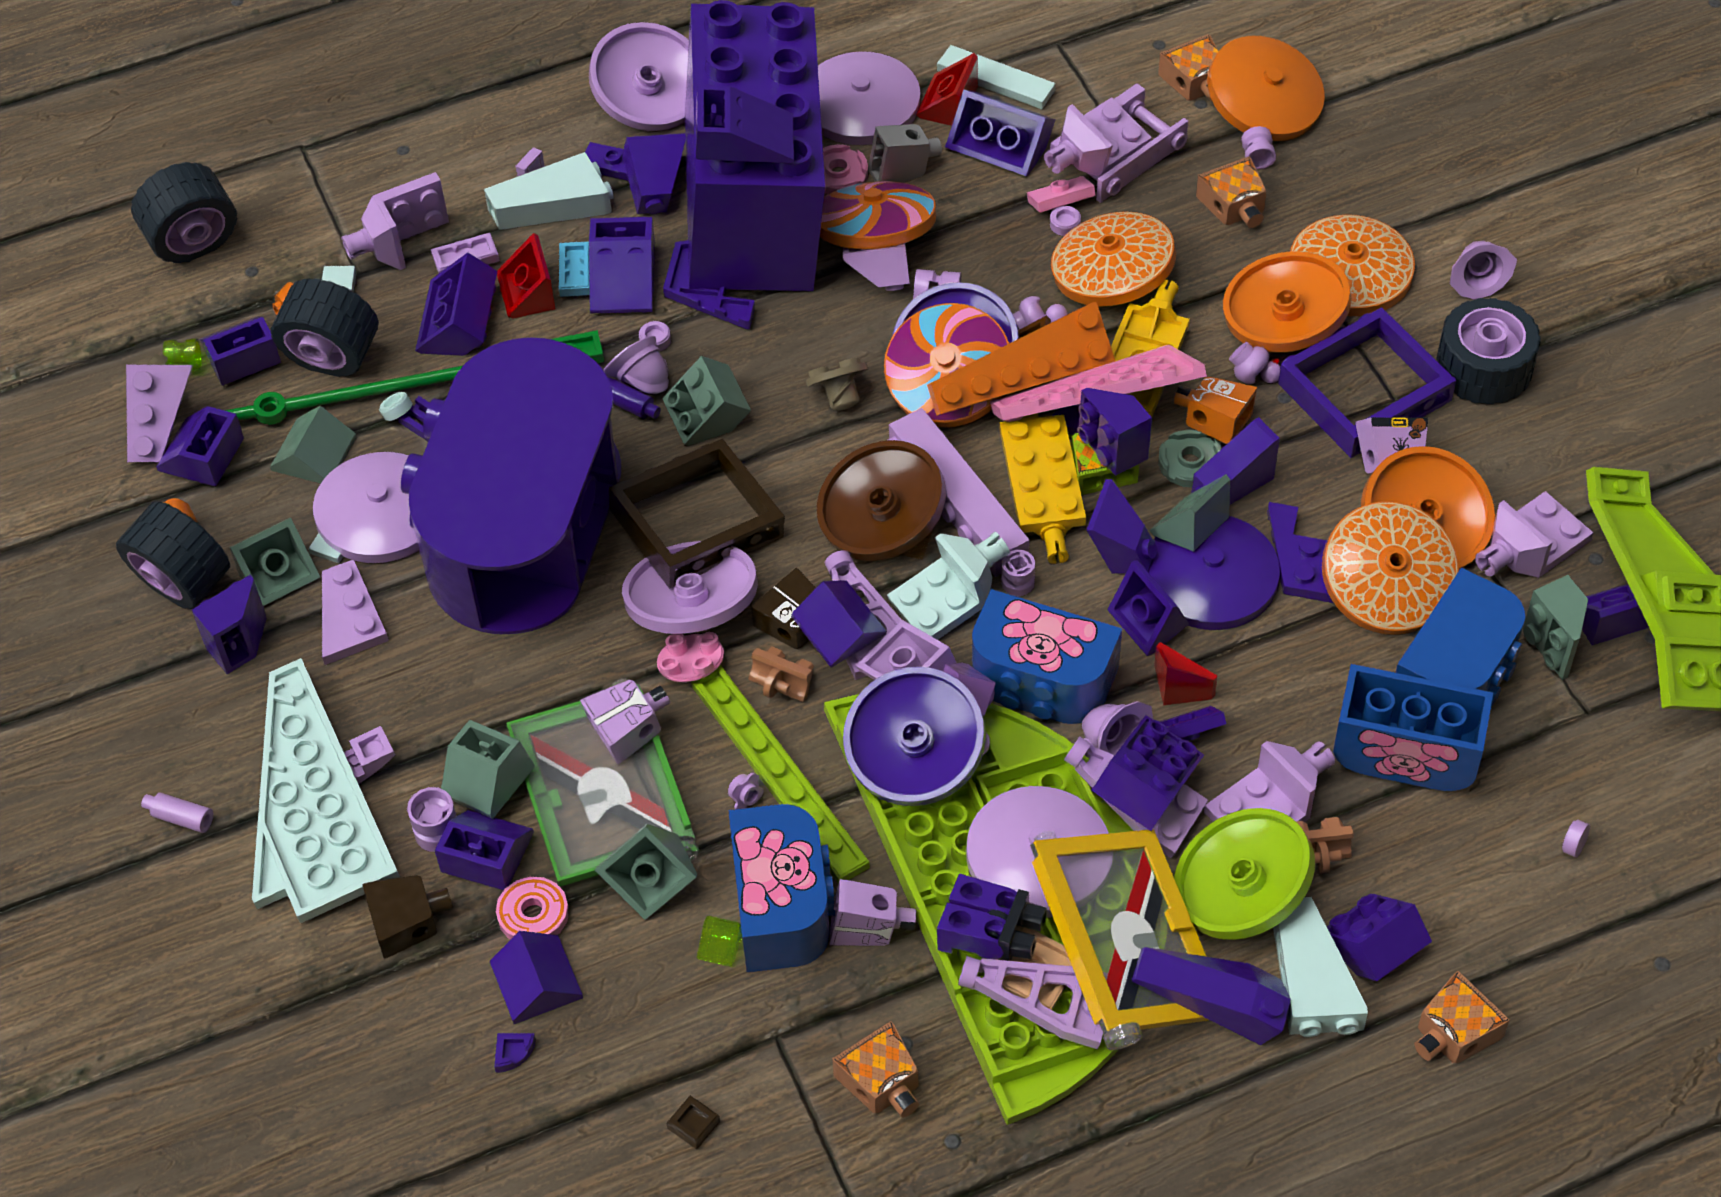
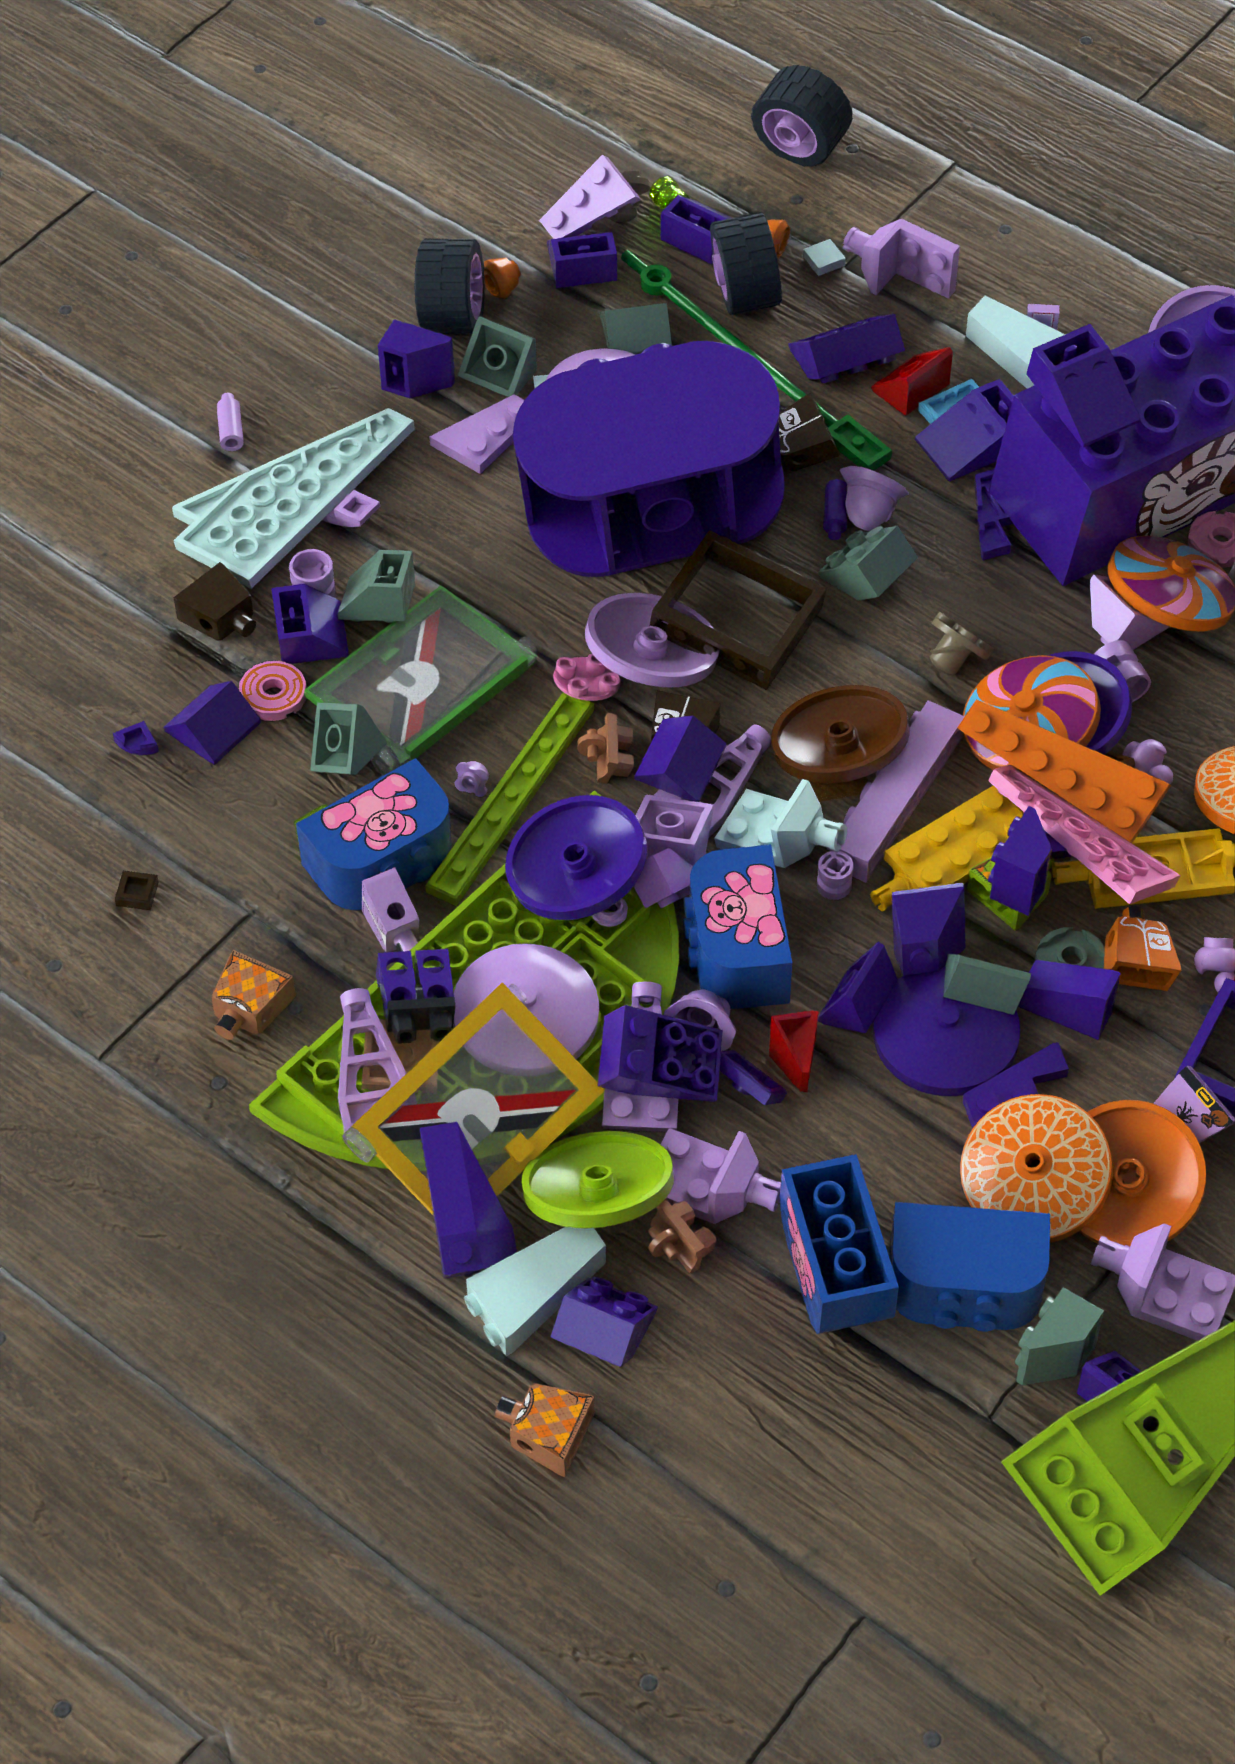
camera: 60 degrees right, 0 degrees up
(479, 246) = (916, 324): lavender plate -> none
(625, 717) = (482, 654): lavender torso -> none
(659, 330) = (922, 496): lavender tile -> none
(1576, 838) = (819, 1453): lavender tile -> none

